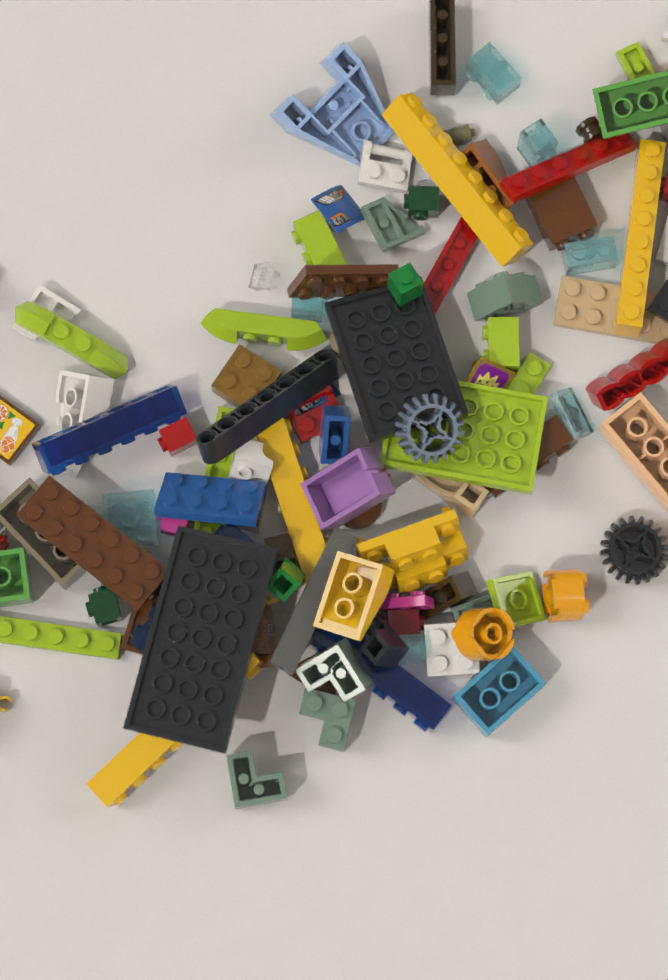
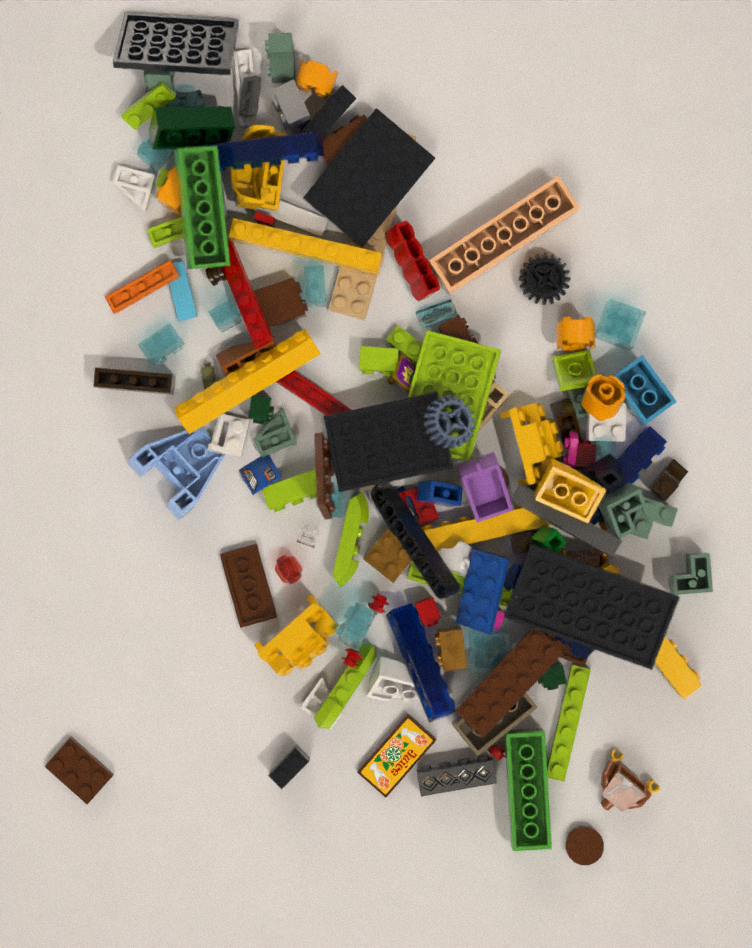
camera: 80 degrees left, 10 degrees up
(125, 271) = (299, 640): none -> yellow piece
(131, 468) = (452, 648): none -> pearl gold brick
(151, 345) = (356, 627): none -> clear light blue brick
(193, 209) = (248, 585): none -> reddish brown tile
(218, 255) = (288, 569): none -> clear red head
(381, 740) = (668, 480): none -> dark brown arch
(405, 284) = (332, 429): green brick -> none
(504, 295) = (341, 354): sand green brick -> none
(563, 92) = (182, 295): none -> medium azure tile
(564, 44) = (142, 286): none -> orange tile
(584, 653) = (619, 324): none -> clear light blue brick

